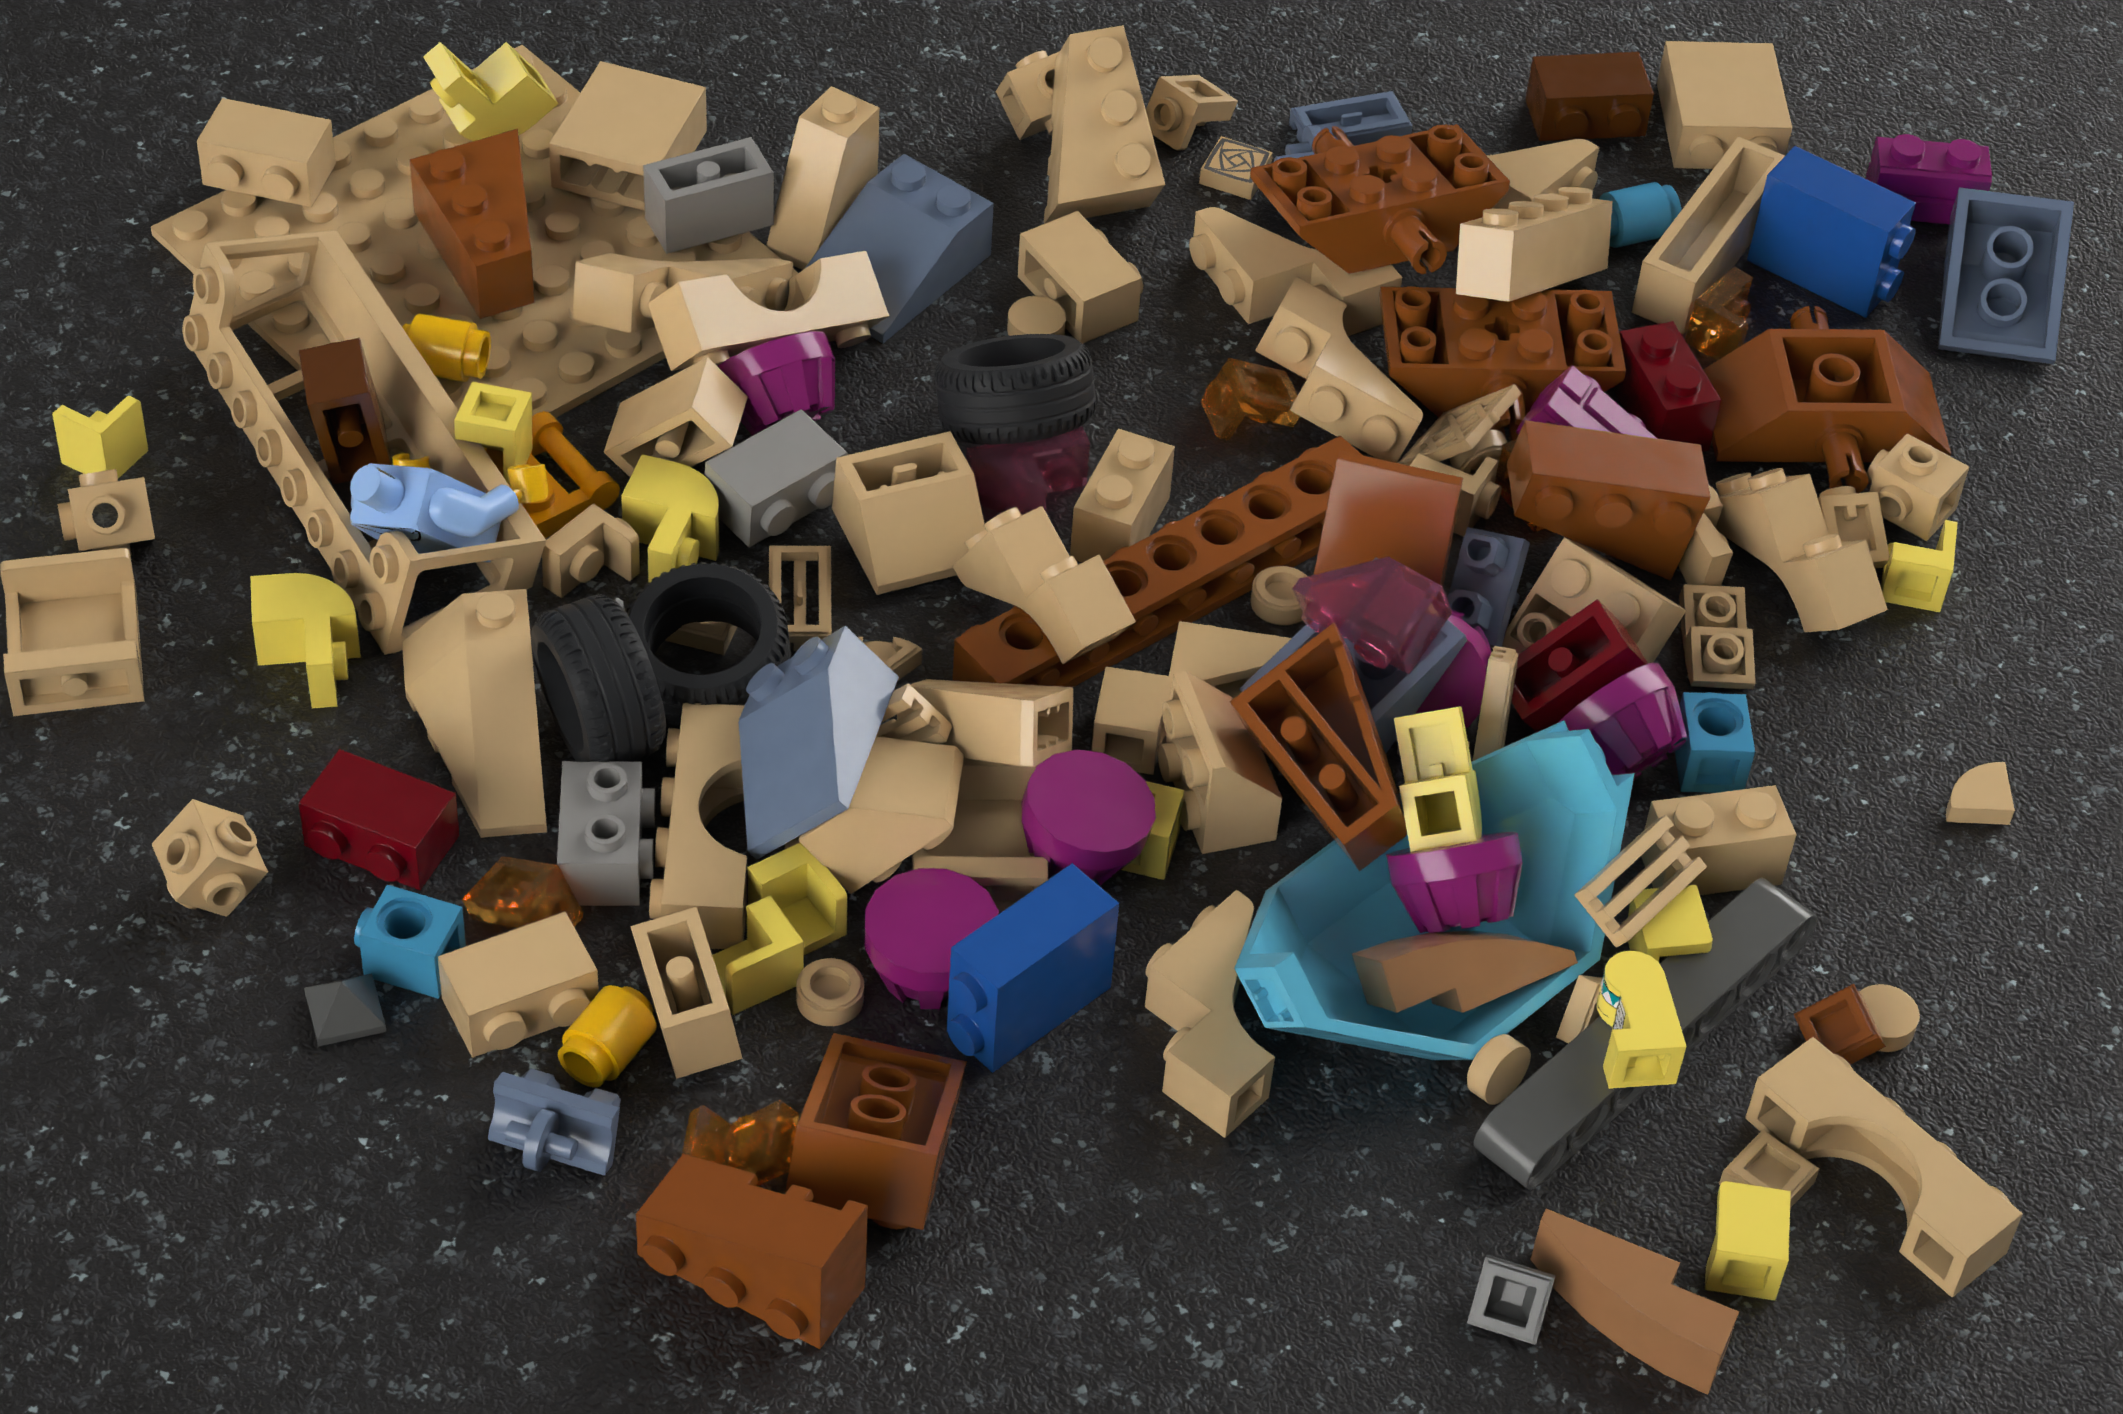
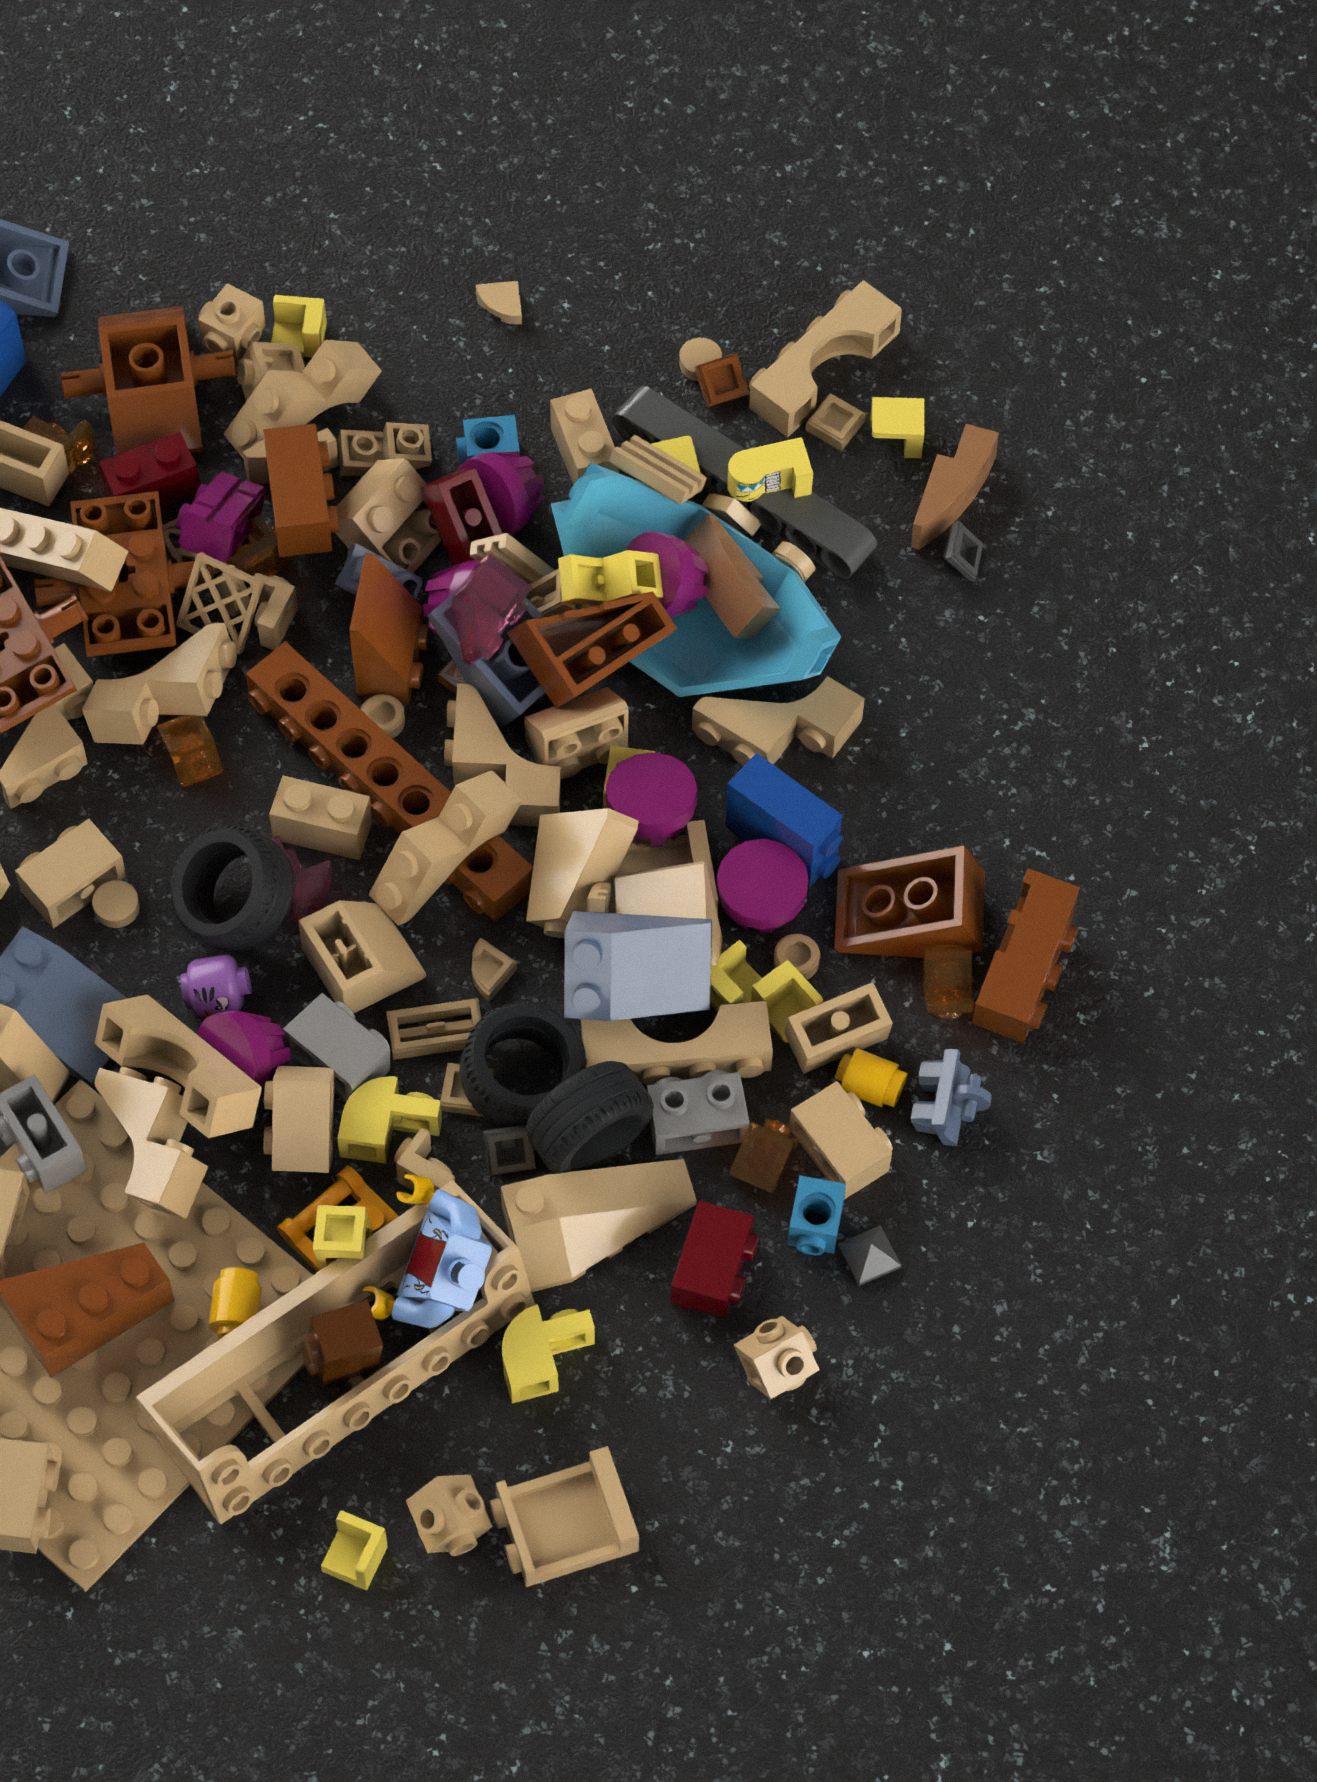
camera: 95 degrees left, 15 degrees up
(896, 381) = (215, 985): none -> medium lavender head

